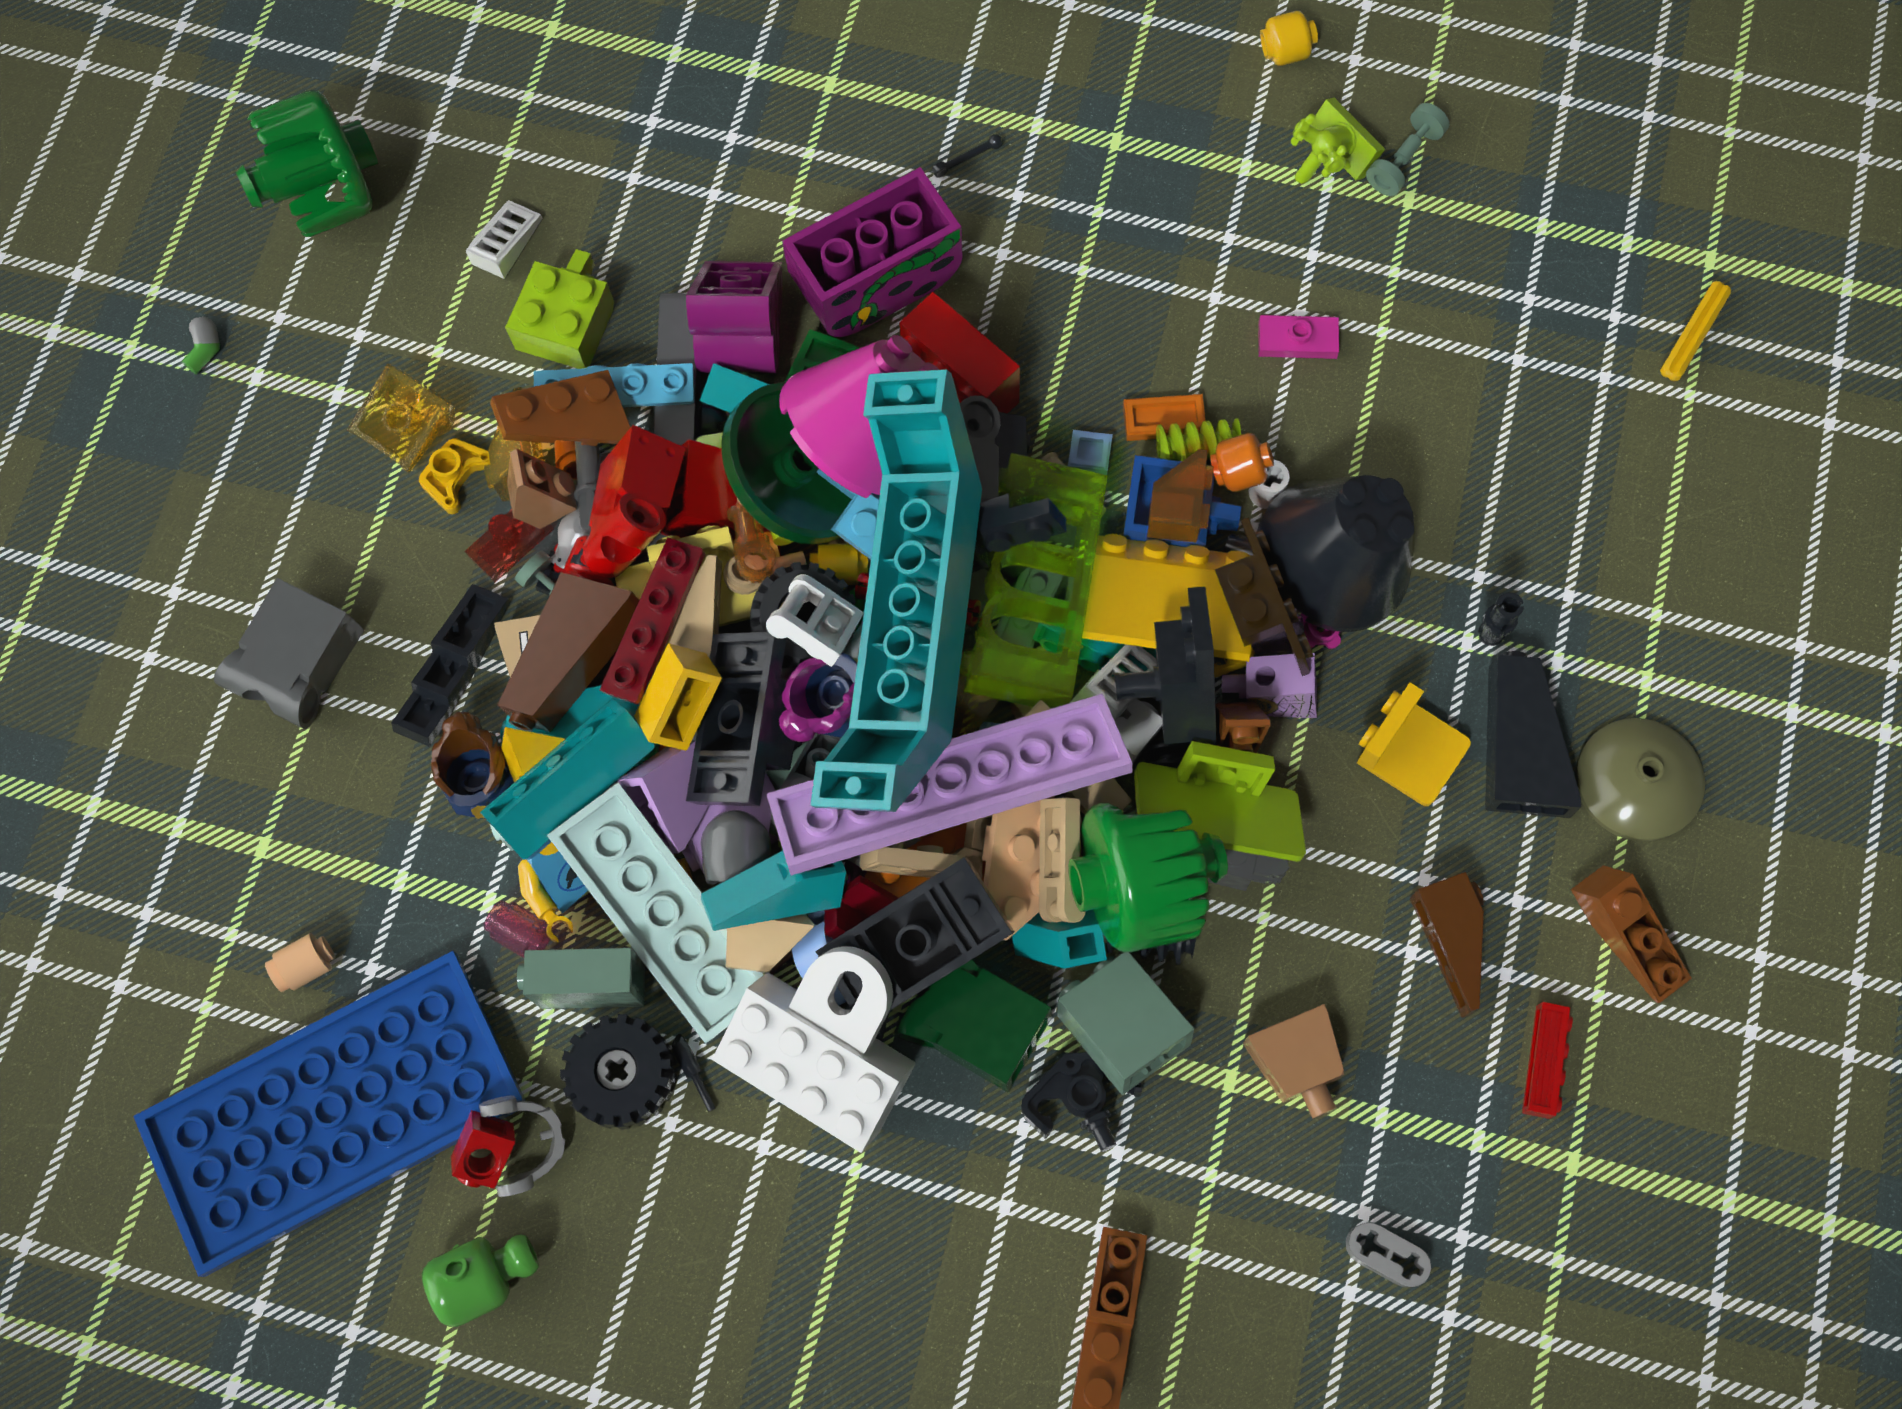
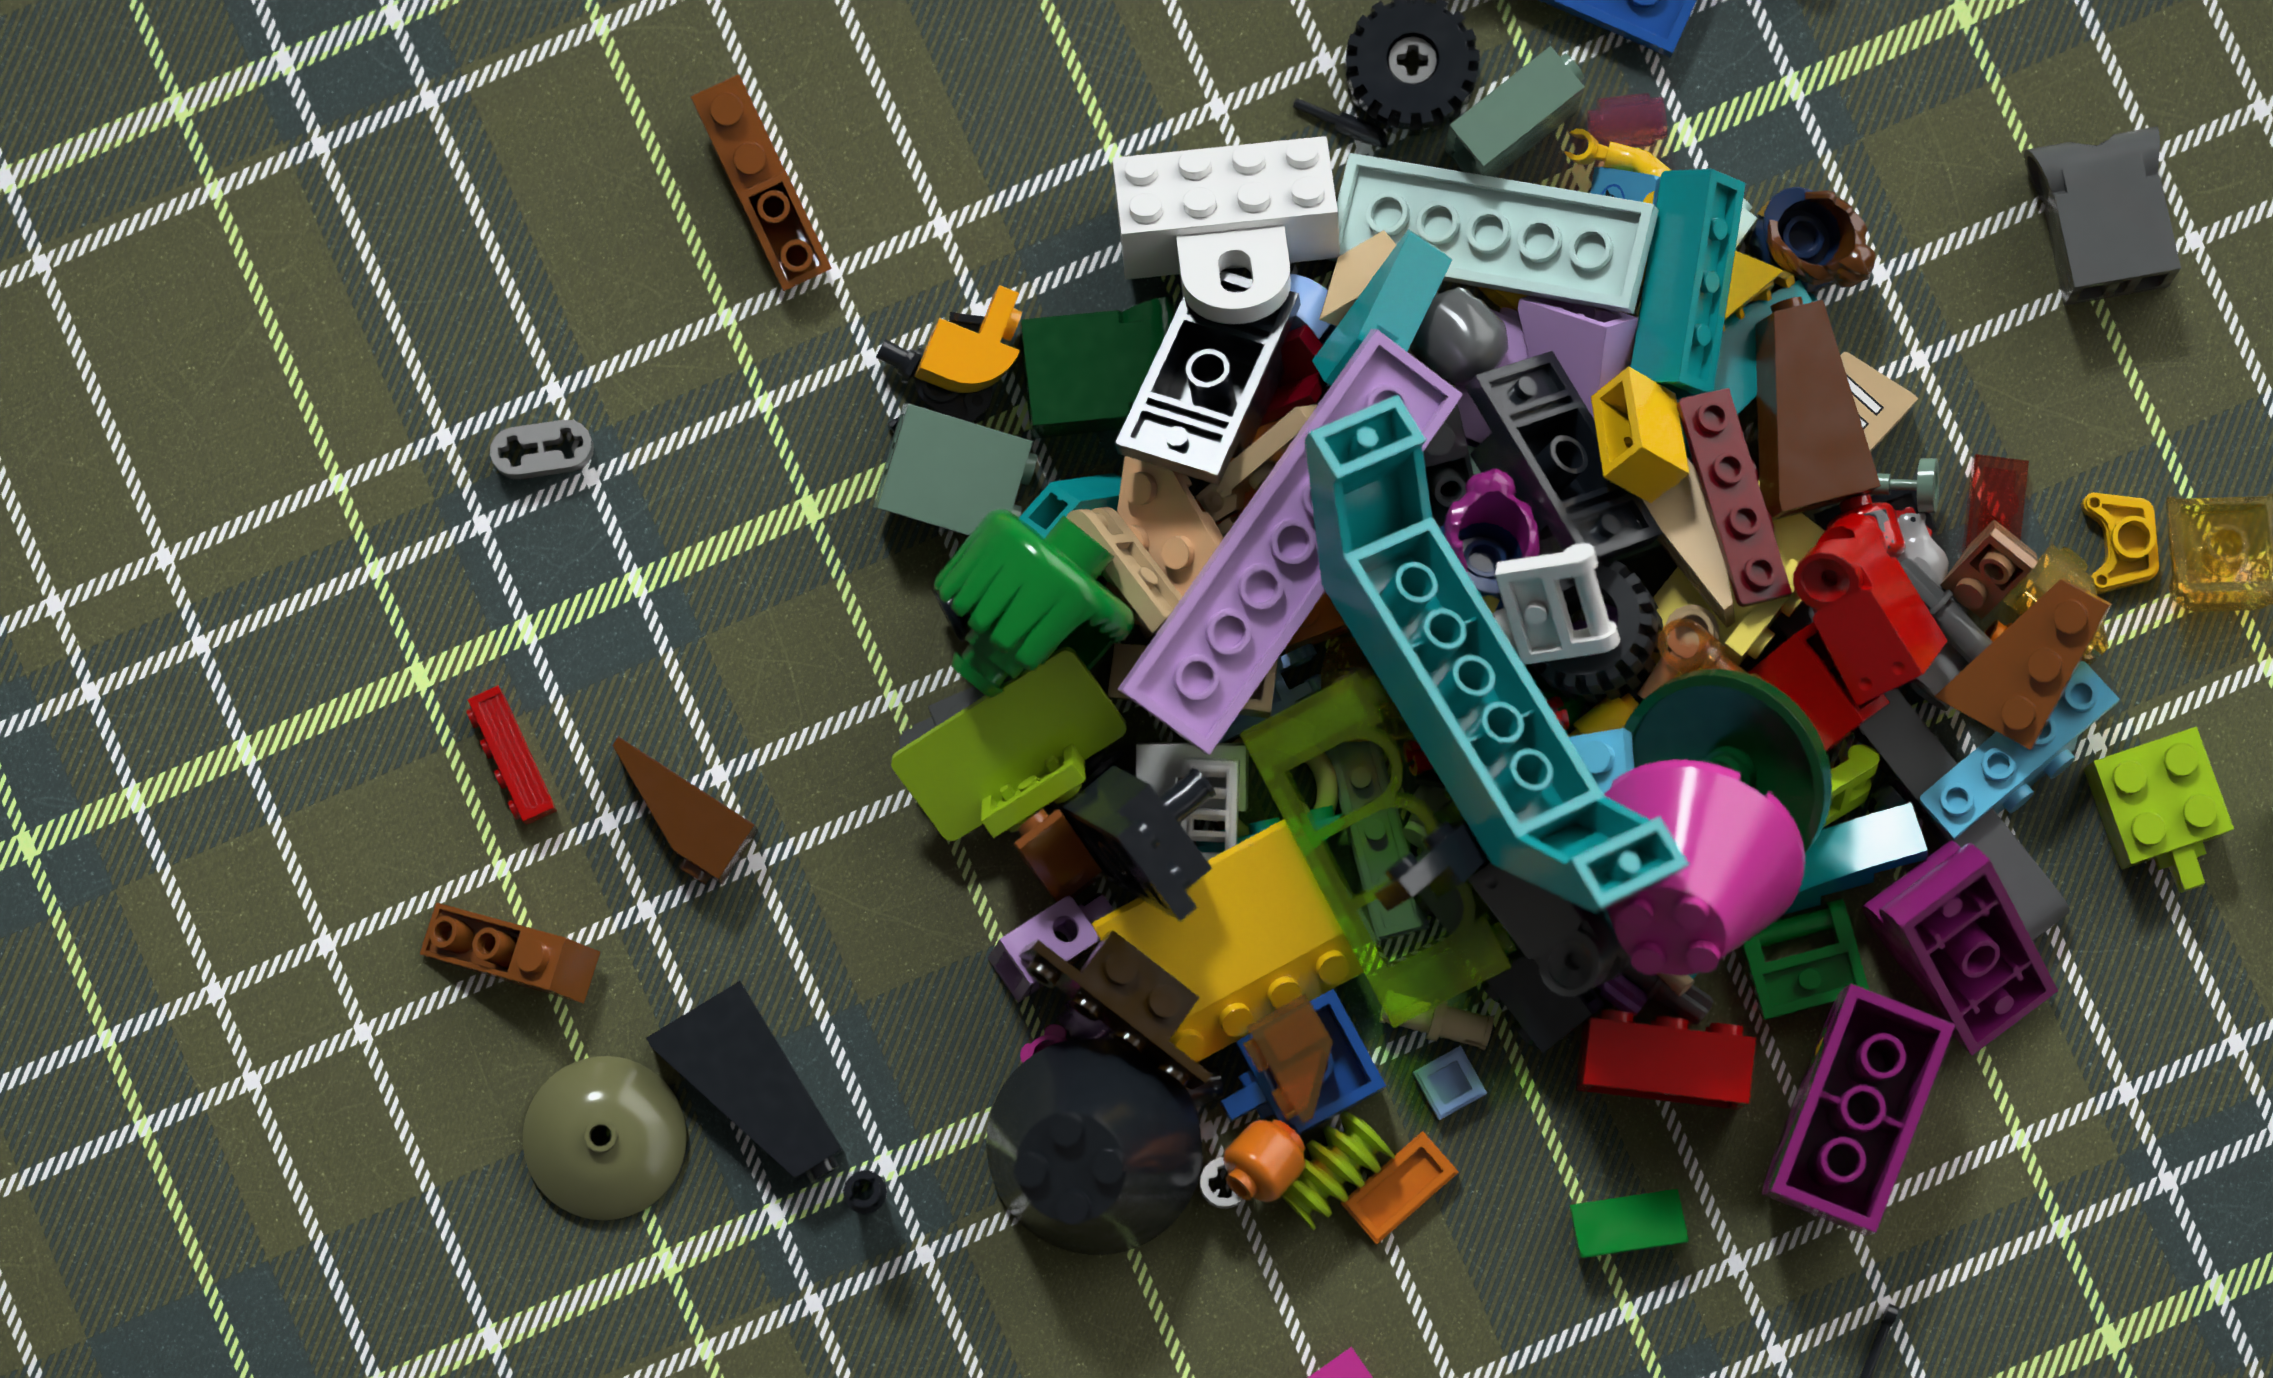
camera: 140 degrees right, 10 degrees up
(450, 667) = (1934, 333): black slope -> none
(1048, 306) = (1628, 1223): none -> green slope
(1053, 1082) = (972, 360): none -> light orange brick
(1299, 1059) = (756, 571): medium nougat torso -> none
(1412, 748) = (861, 989): yellow bracket -> none

